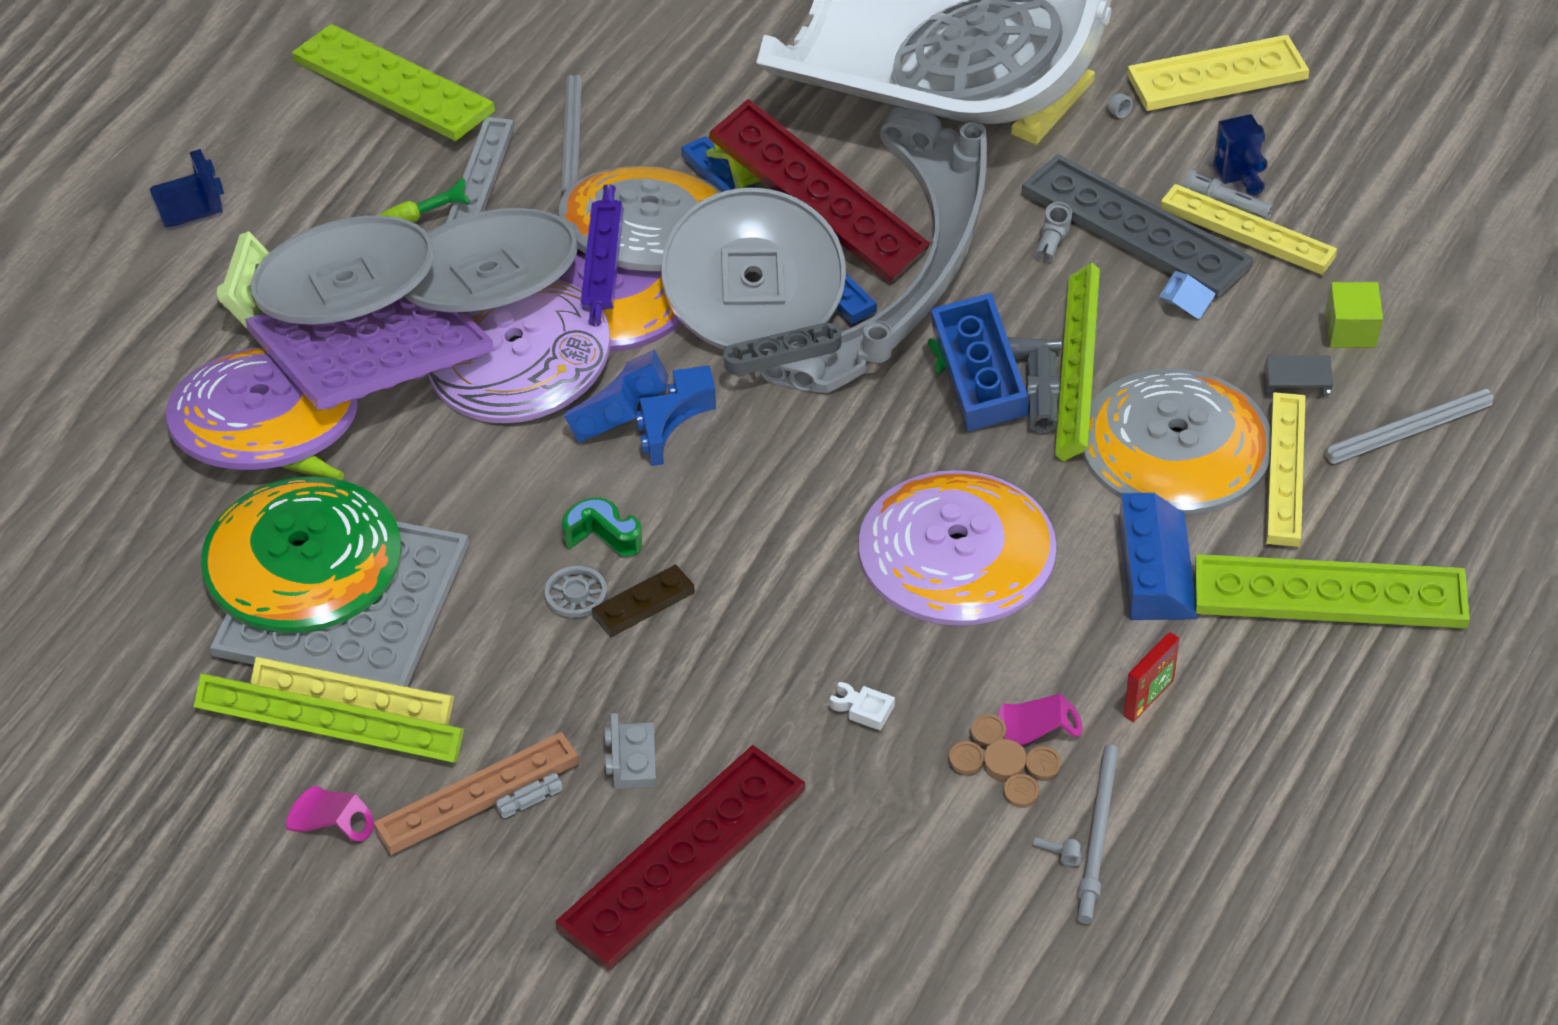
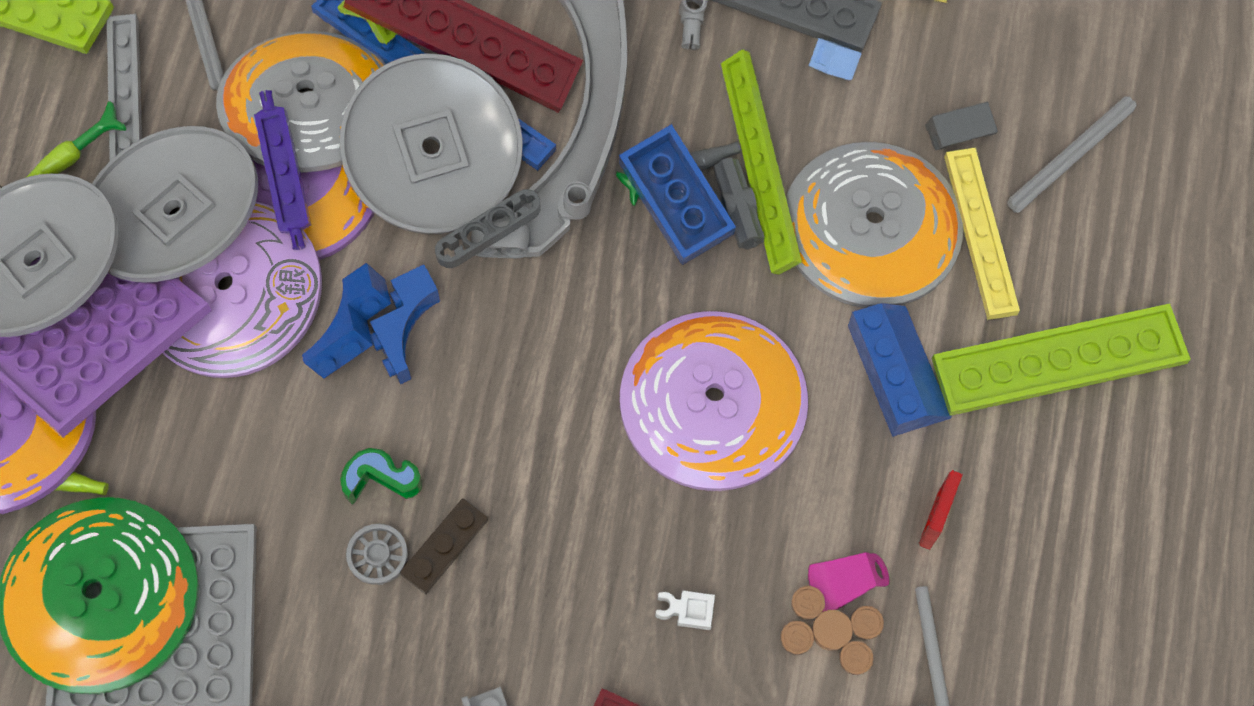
camera: 20 degrees left, 20 degrees up
(1353, 314) = (993, 47): lime head -> none

